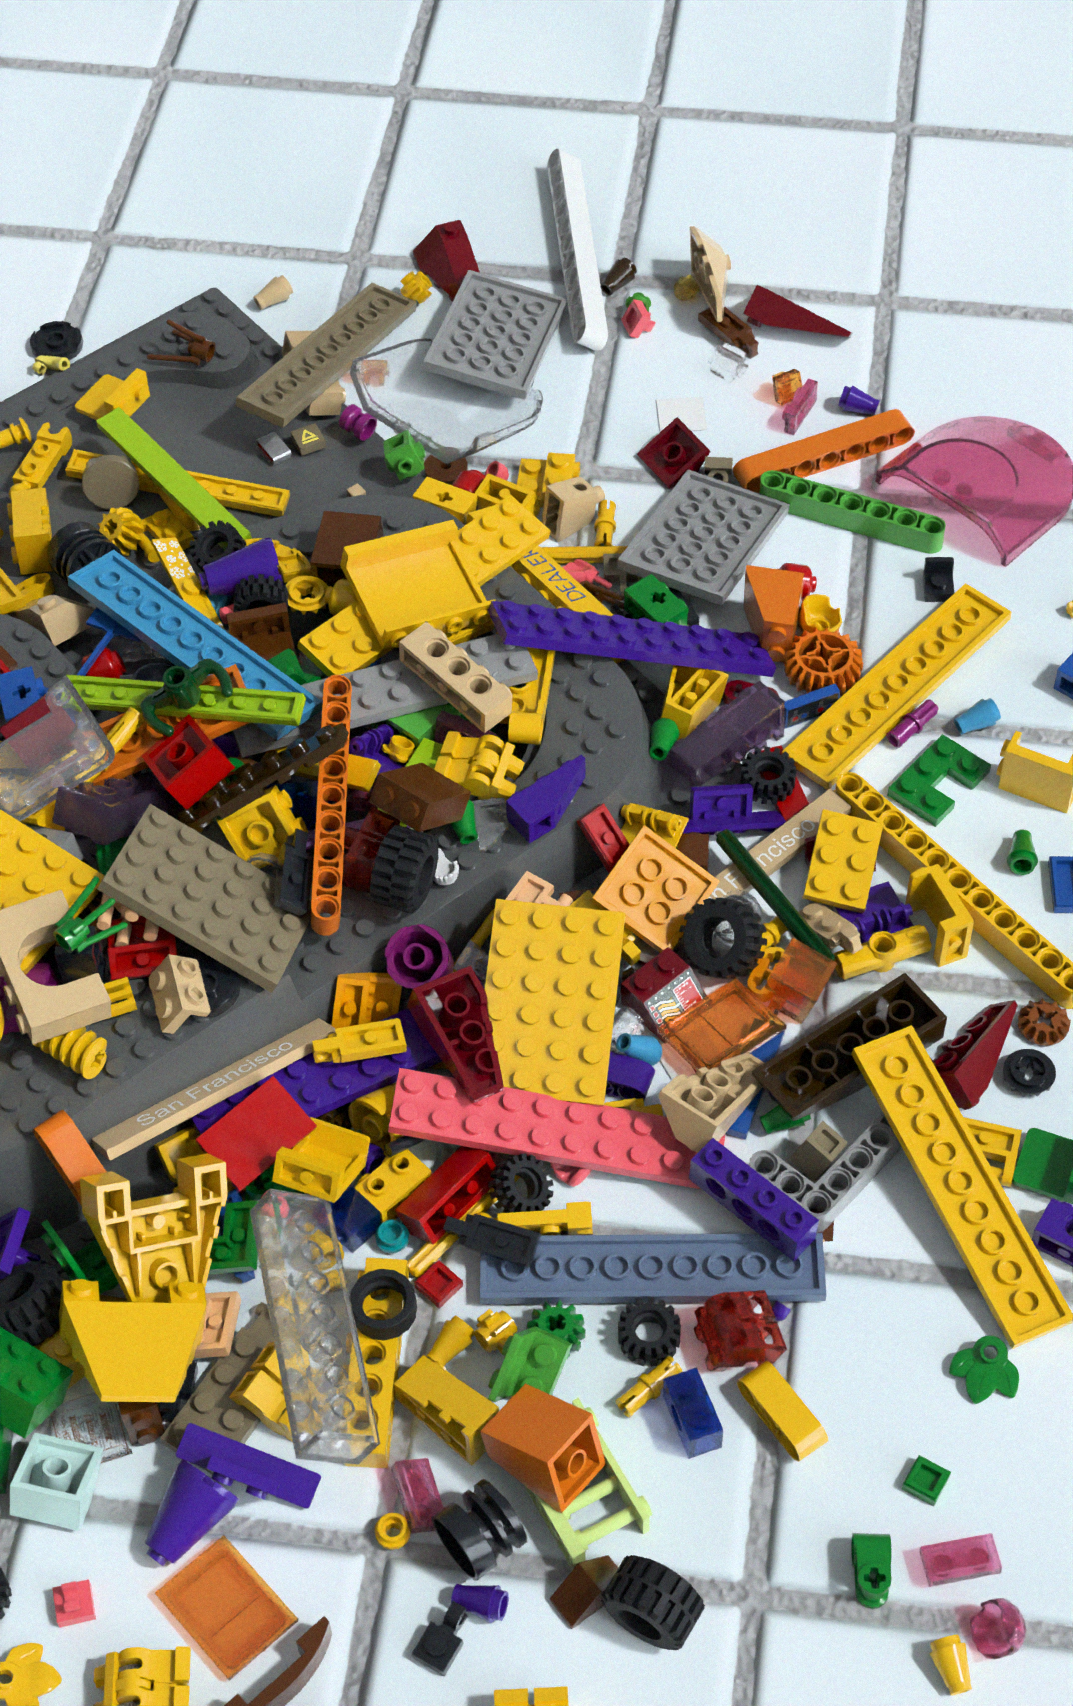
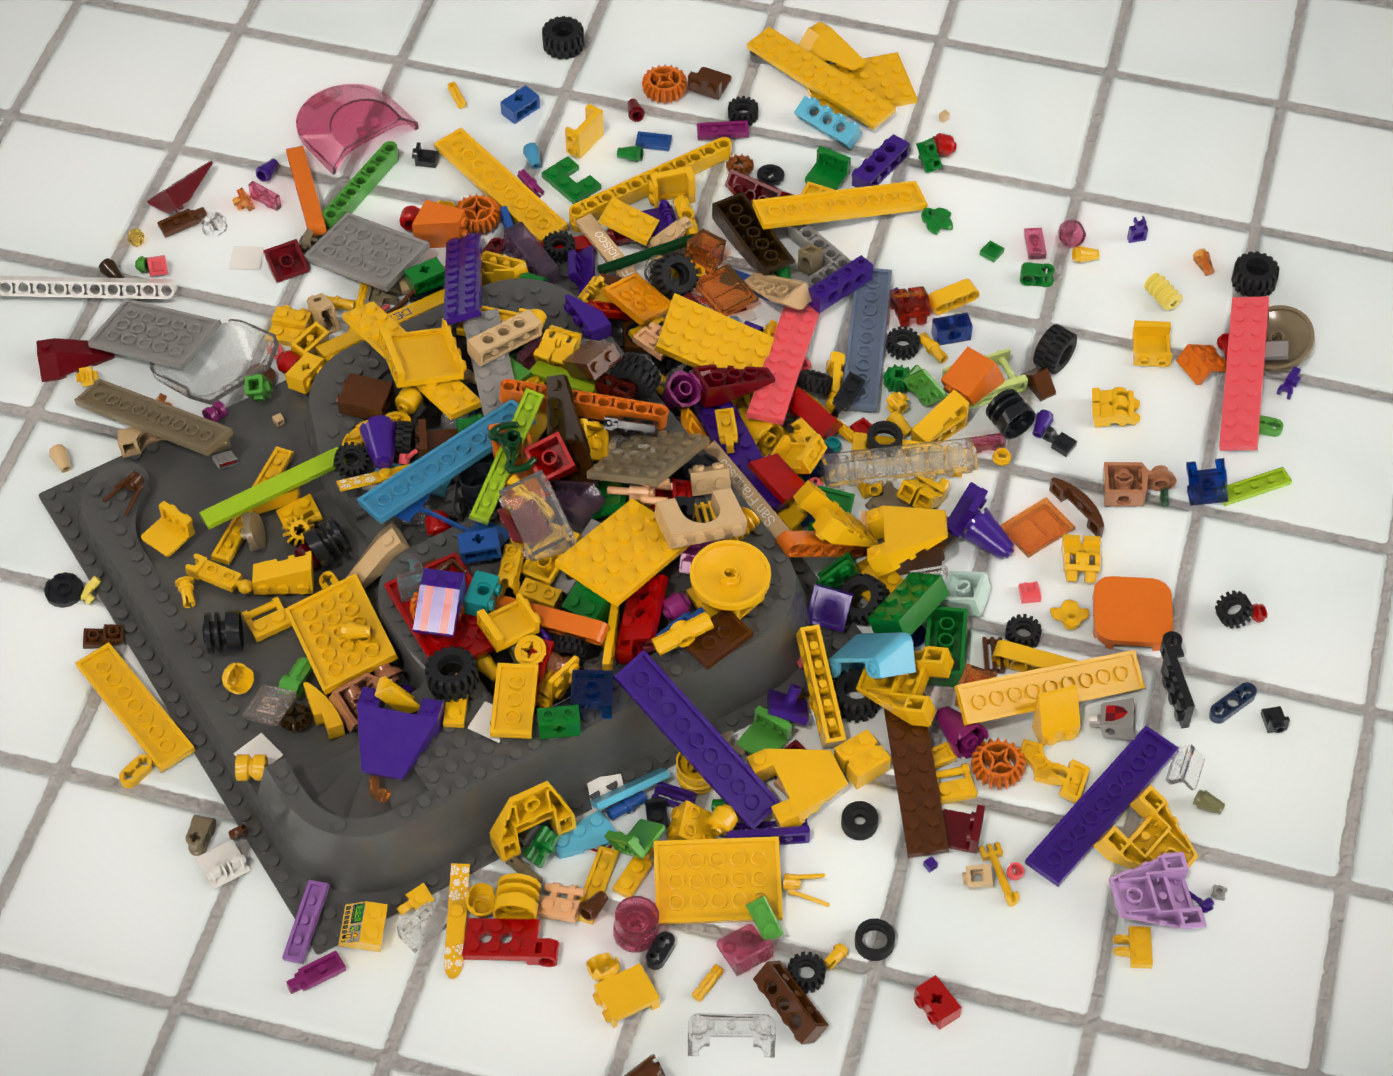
camera: 85 degrees left, 0 degrees up
(73, 933) = (686, 496): green plant -> none
(709, 270) = (144, 218): tan wedge -> none

